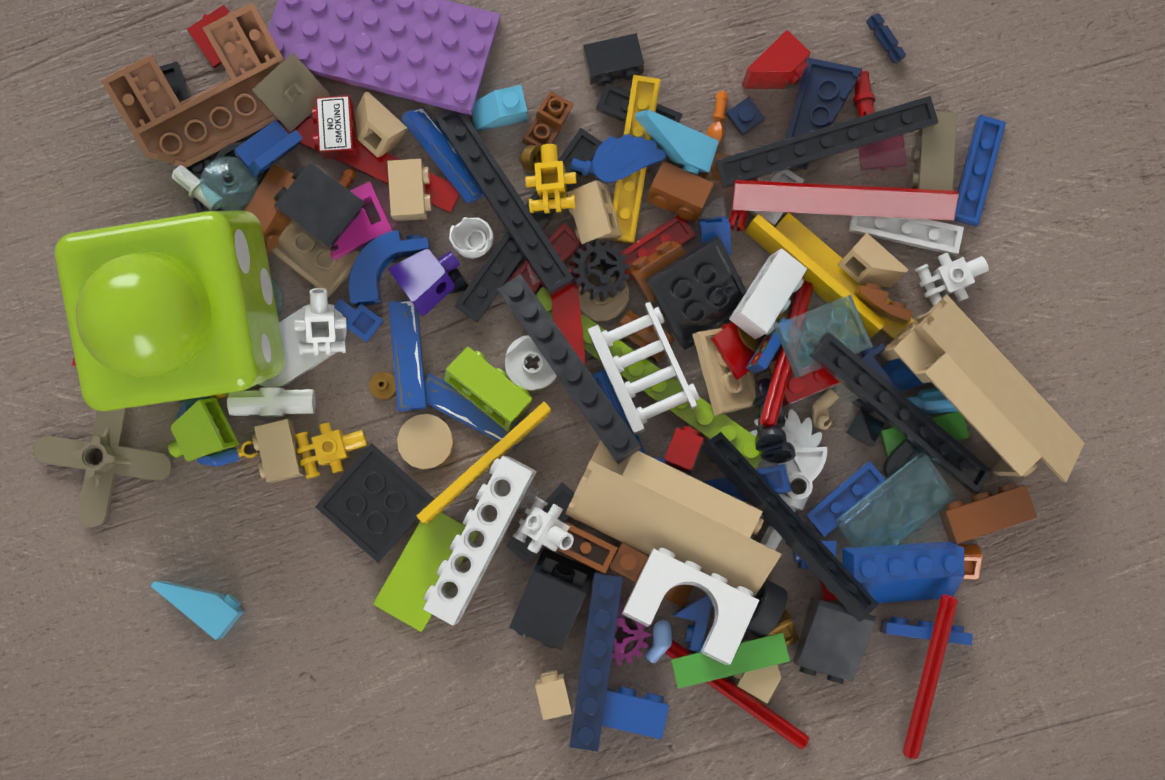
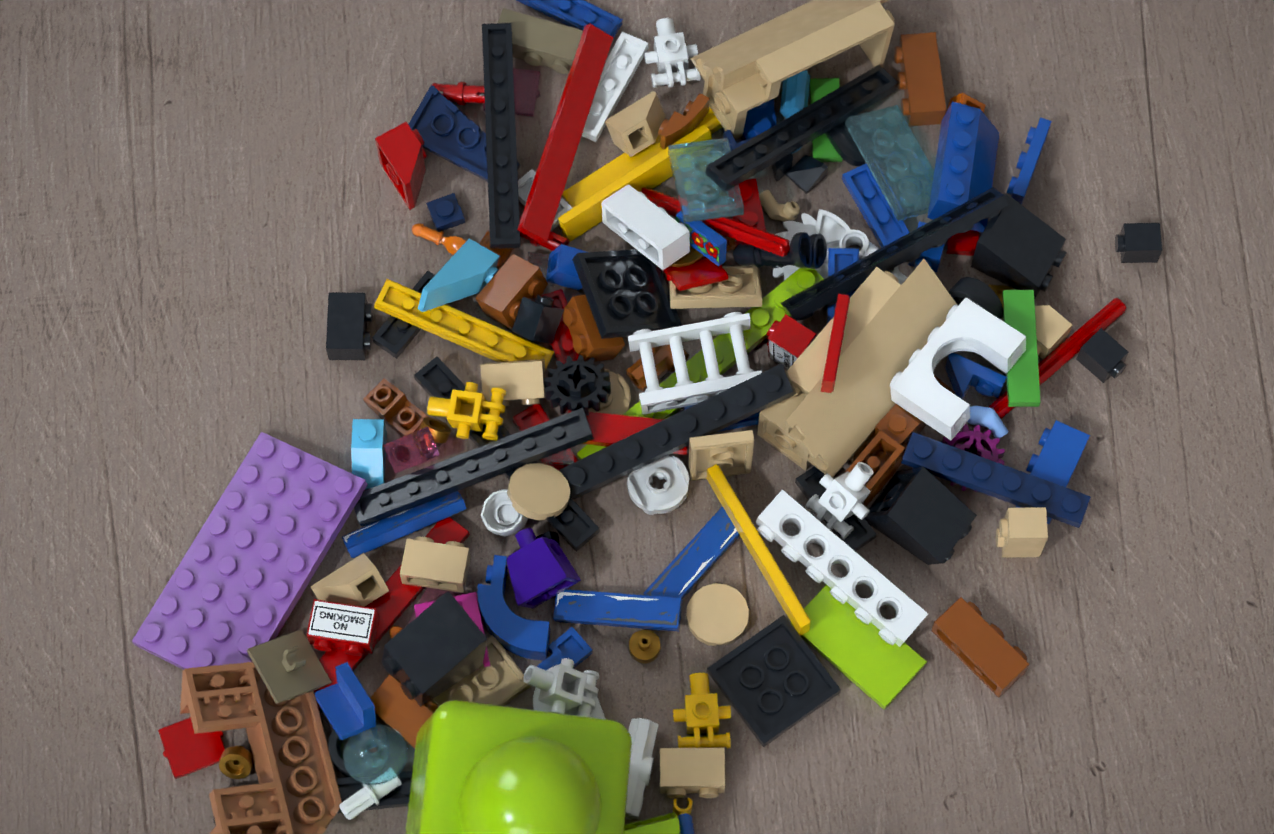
camera: 75 degrees left, 15 degrees down
(207, 74) = (236, 762): none -> pearl gold tile
(444, 678) = (980, 646): none -> dark orange brick
(488, 388) = (677, 530): lime brick -> none
(492, 260) = (538, 491): none -> tan tile
(508, 143) = (421, 449): none -> clear pink brick
(558, 409) = (728, 450): none -> tan tile
(620, 158) = (460, 339): blue animal -> none
(655, 220) = (538, 319): none -> black brick
(671, 489) = (835, 343): none -> red tile
(746, 737) = (1103, 356): none -> black brick
(869, 750) = (1139, 243): none -> black brick
(886, 38) = (401, 59): dark blue axle -> none
(930, 676) = (1075, 166): red axle -> none

